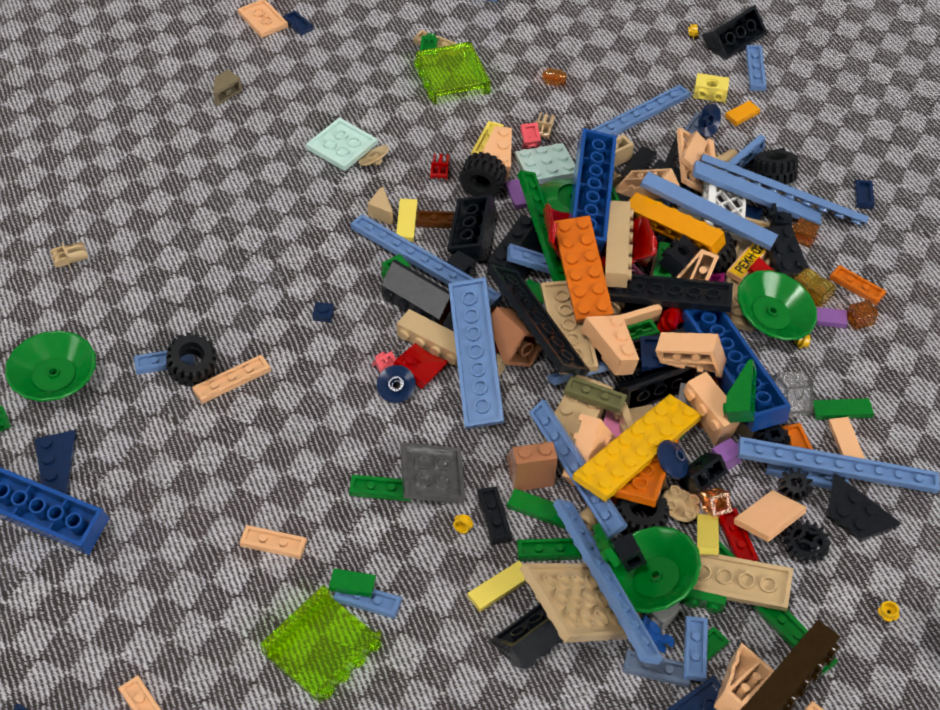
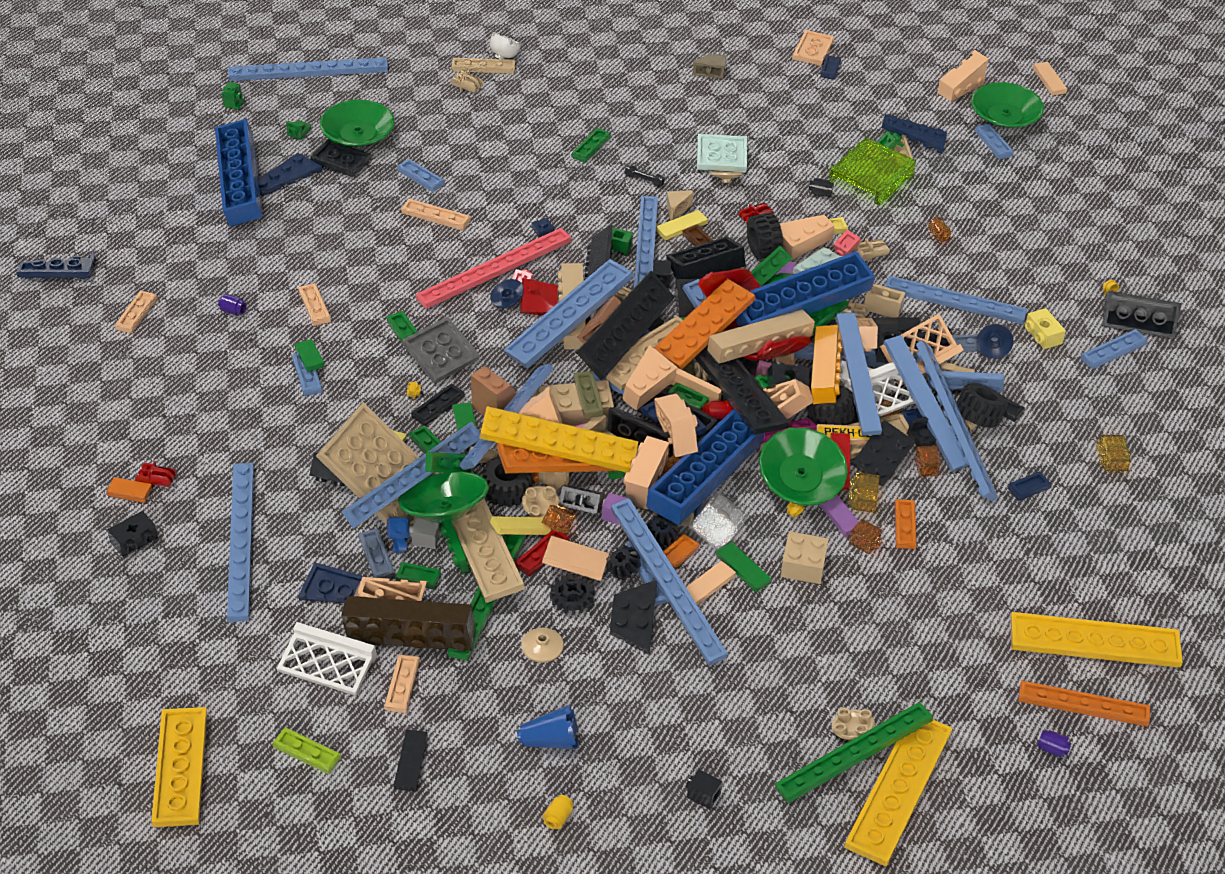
camera: 55 degrees right, 5 degrees down
(51, 200) = (504, 46): none -> white cylinder
(53, 231) = (483, 65): none -> tan tile
(79, 408) = (341, 158): none -> black plate
(190, 345) = (423, 171): black tyre -> none
(218, 612) = (232, 304): none -> dark purple brick
(244, 219) = (591, 145): none -> green tile
(308, 212) = (631, 171): none -> black bar
(320, 645) = (250, 365): clear neon green panel -> none
(349, 379) = (493, 268): none -> coral plate
(431, 22) = (929, 136): none -> dark blue wing
(443, 111) = (821, 187): none -> black brick
(629, 552) = (445, 473): black brick -> none
(672, 459) = (557, 470): dark blue dish -> none
(693, 150) = (931, 335): light nougat tile -> none
(695, 648) = (408, 564): medium blue tile -> none
(741, 396) = (660, 469): green slope -> none
(742, 113) = (1040, 364): light orange tile -> none
(842, 604) = (542, 645): none -> tan dish
(862, 364) = (804, 557): none -> tan brick
(865, 130) = (1113, 452): none -> clear yellow brick
(889, 606) = (548, 670): yellow plate -> none

